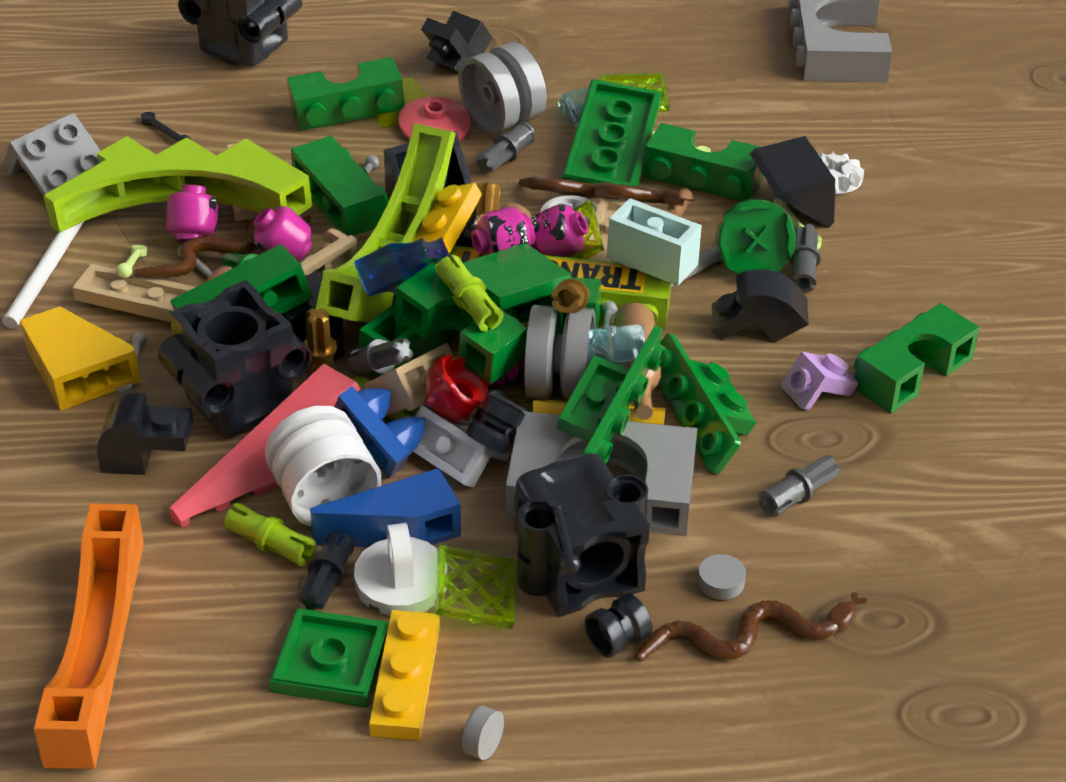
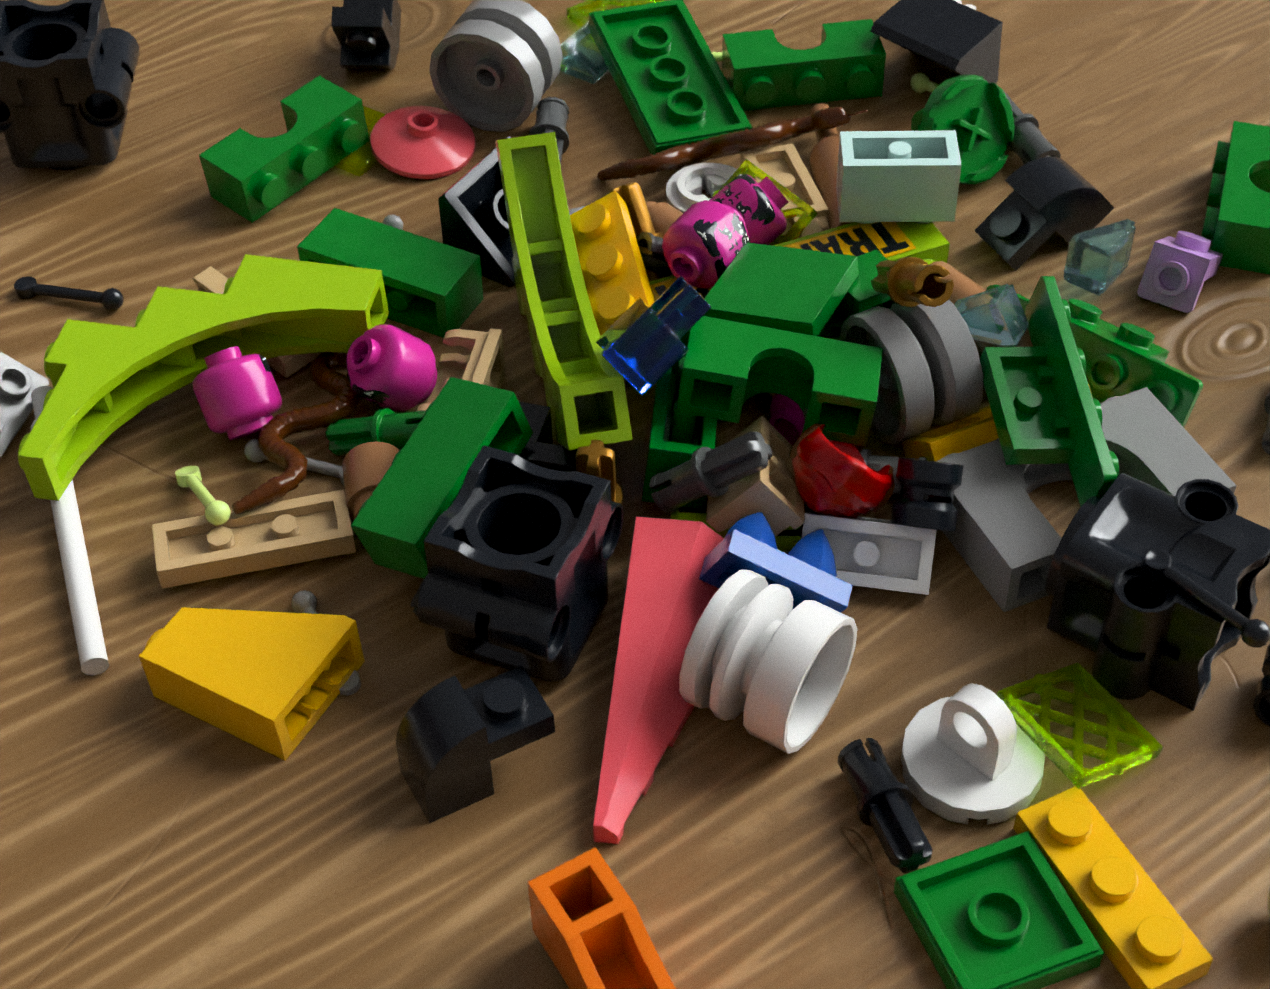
camera: 30 degrees left, 5 degrees up
(270, 534) = (759, 791): lime pin -> none
(419, 501) = (912, 660): blue slope -> none
(469, 293) = (788, 332): lime pin -> none
(771, 349) = (1099, 256): none -> clear light blue slope

